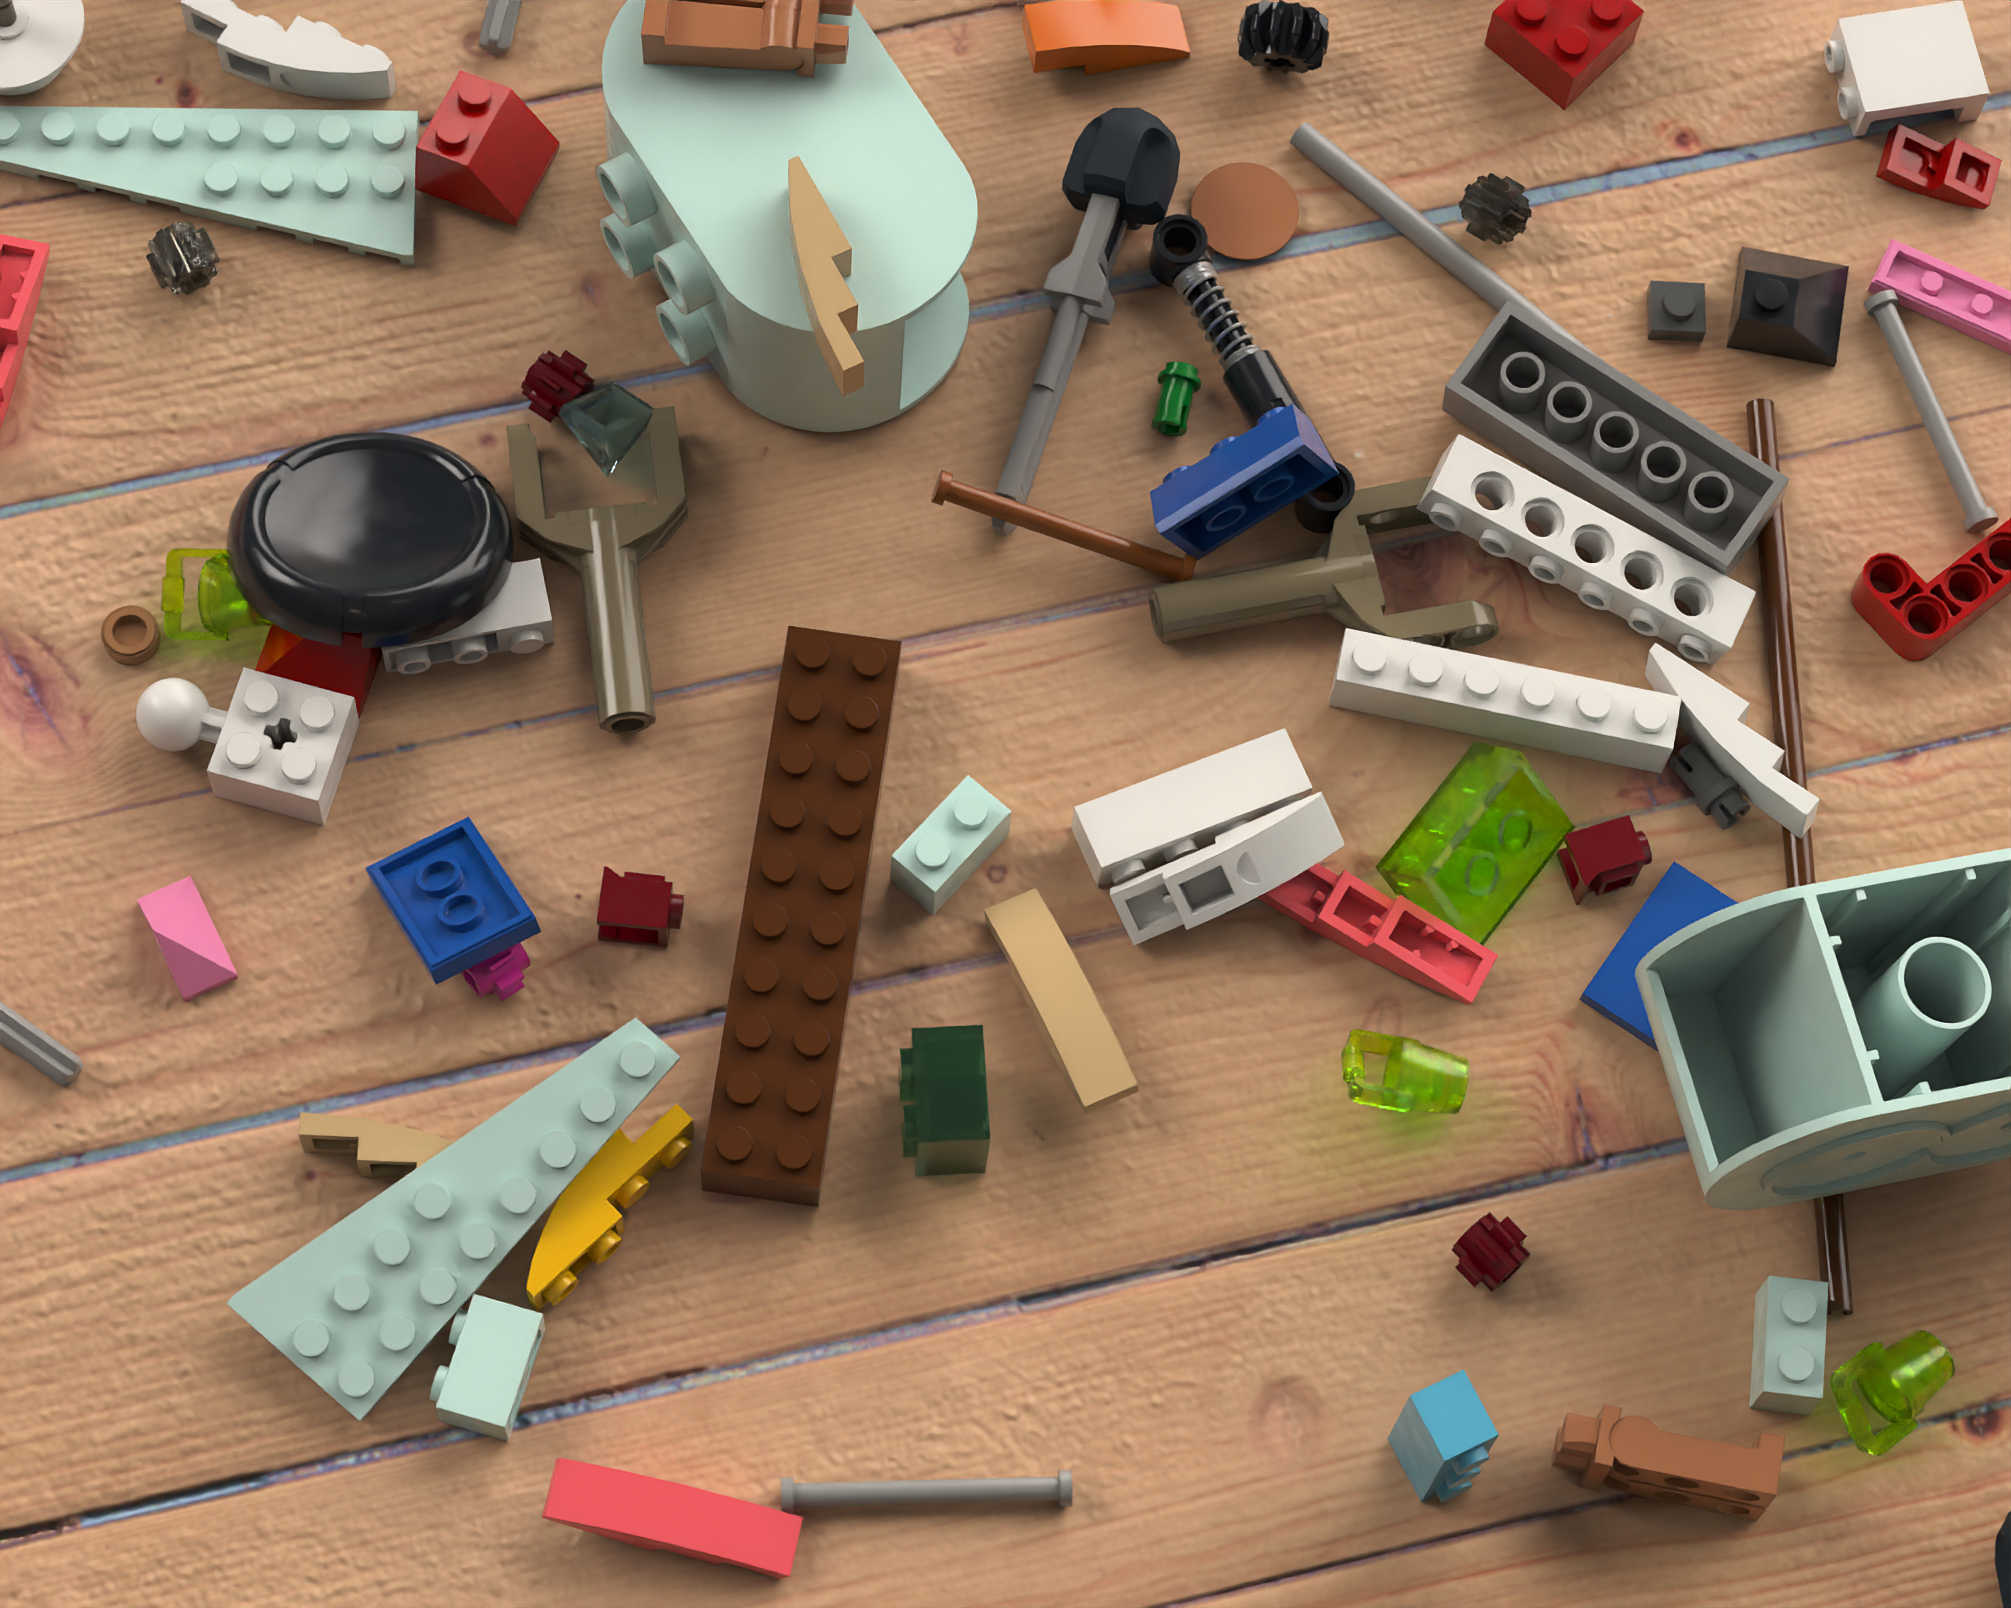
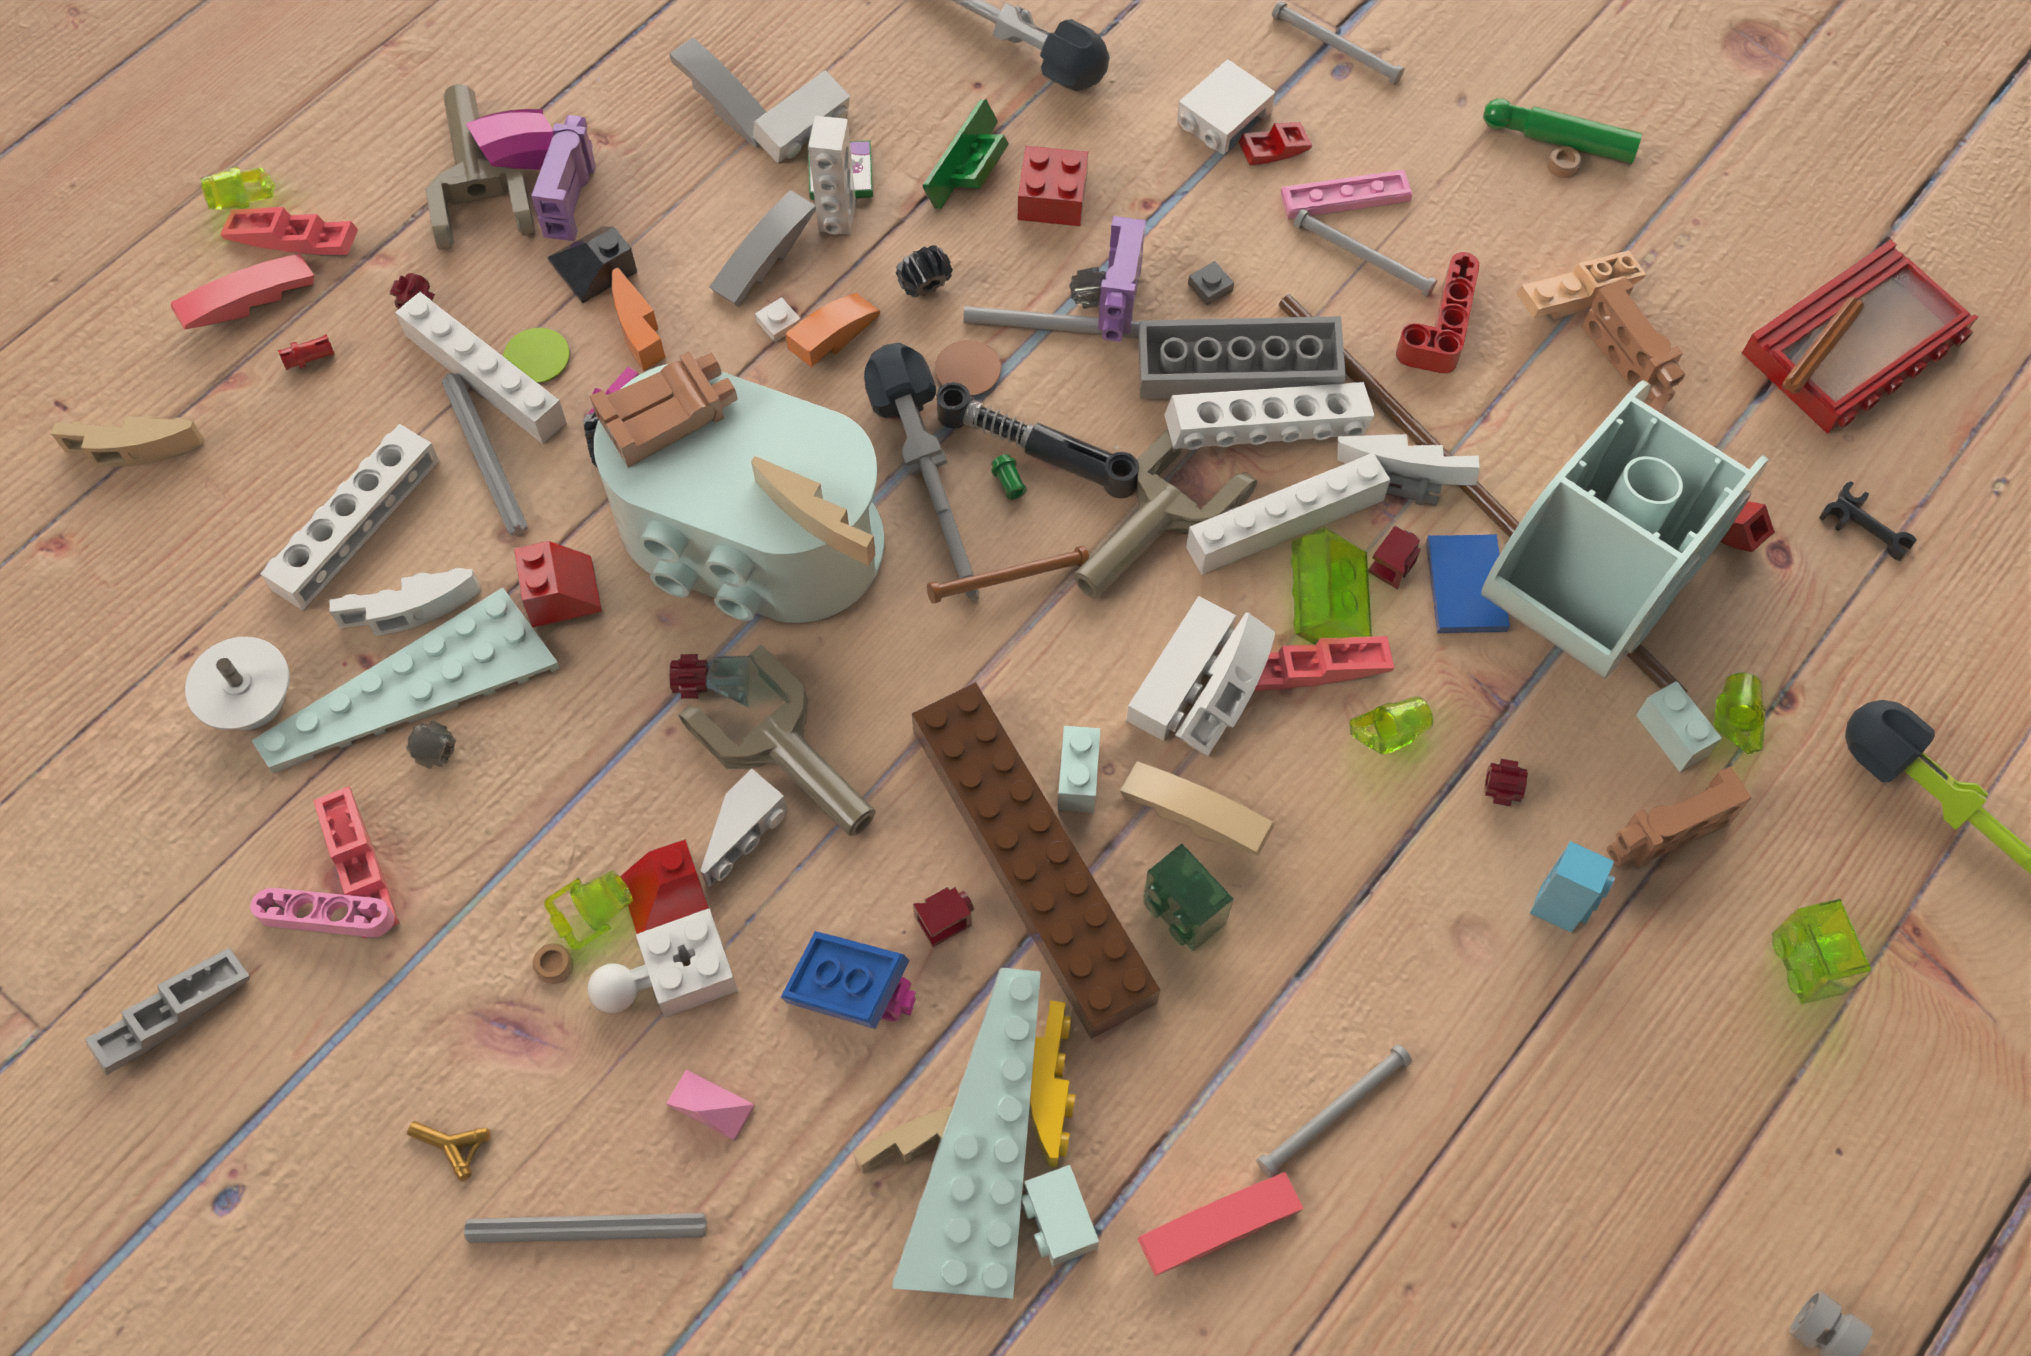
camera: 30 degrees left, 5 degrees down
(369, 540) = (653, 821): black piece -> none
(1241, 482) = (1080, 489): blue slope -> none
(1538, 230) = (1122, 278): none -> medium lavender hips
(1787, 306) = (1259, 248): black slope -> none

